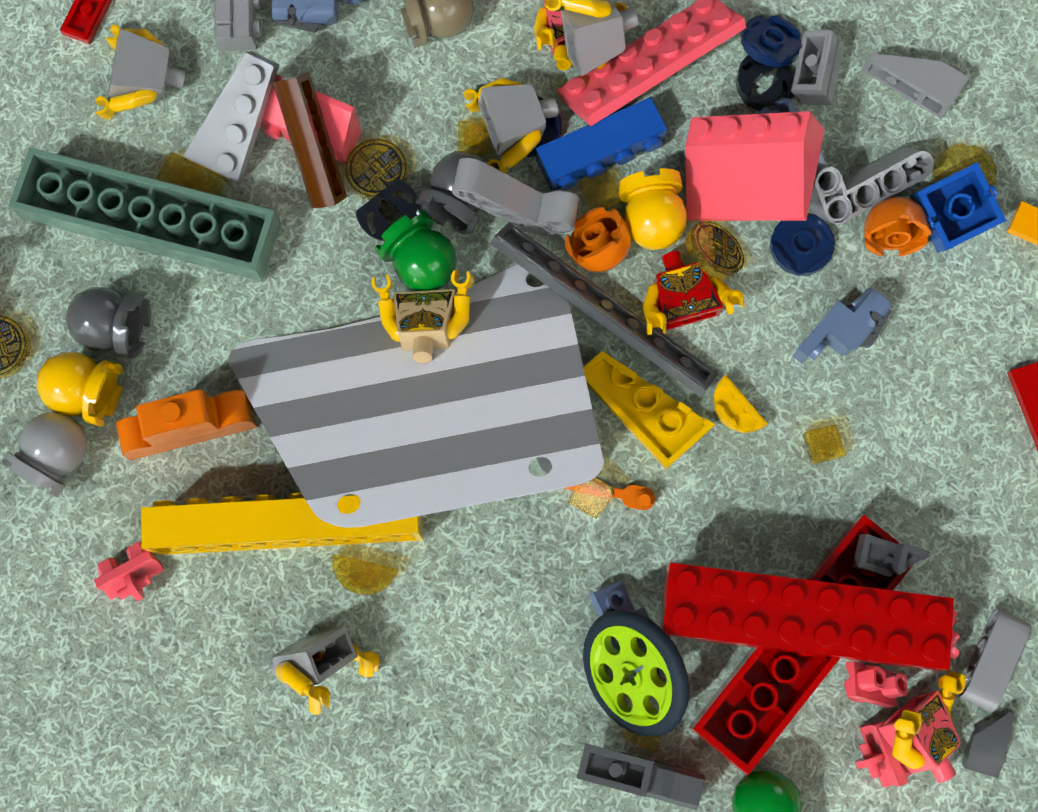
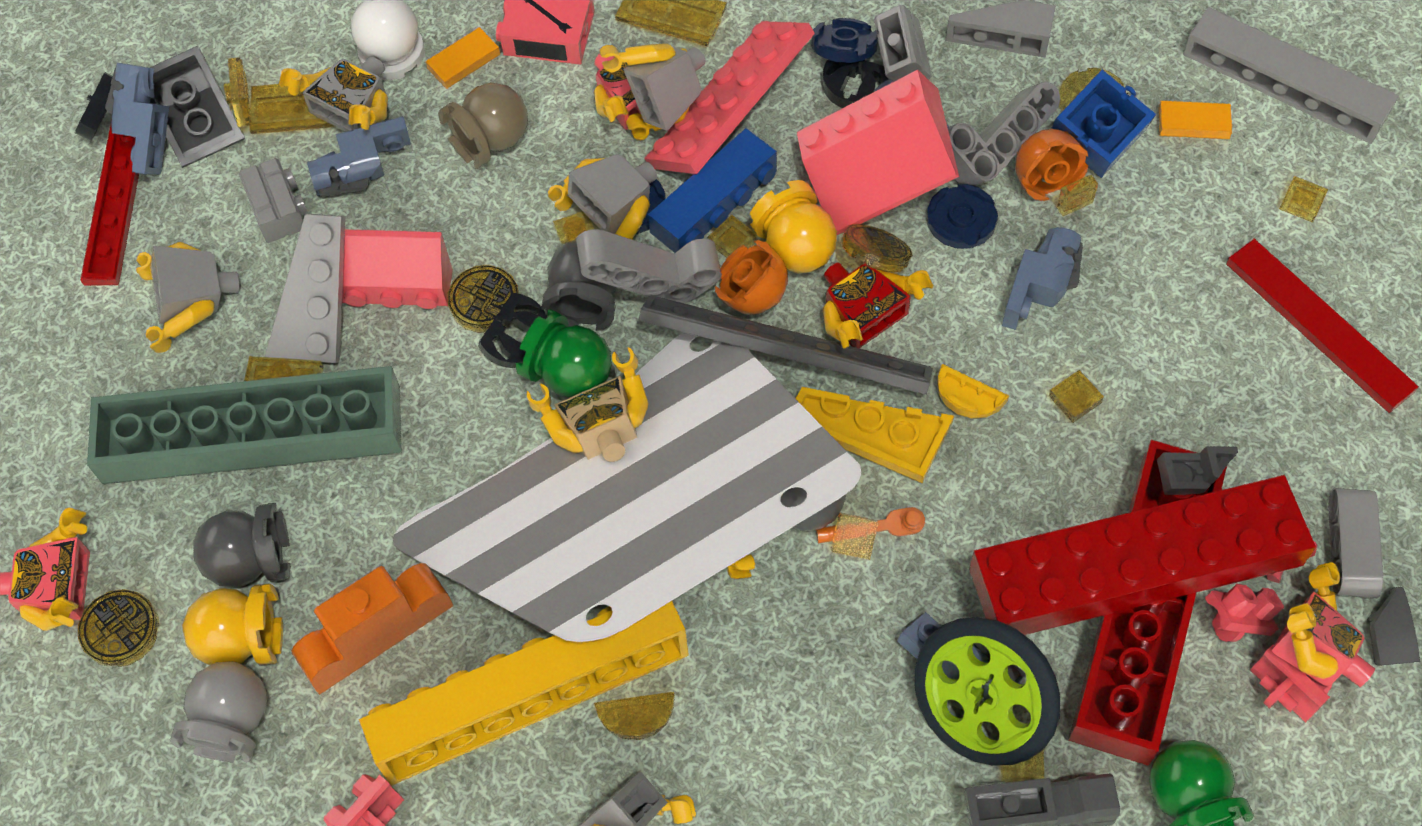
camera: 20 degrees left, 15 degrees down
(310, 140) = (402, 284): reddish brown brick -> none
(907, 264) = (1077, 195): none -> clear yellow tile

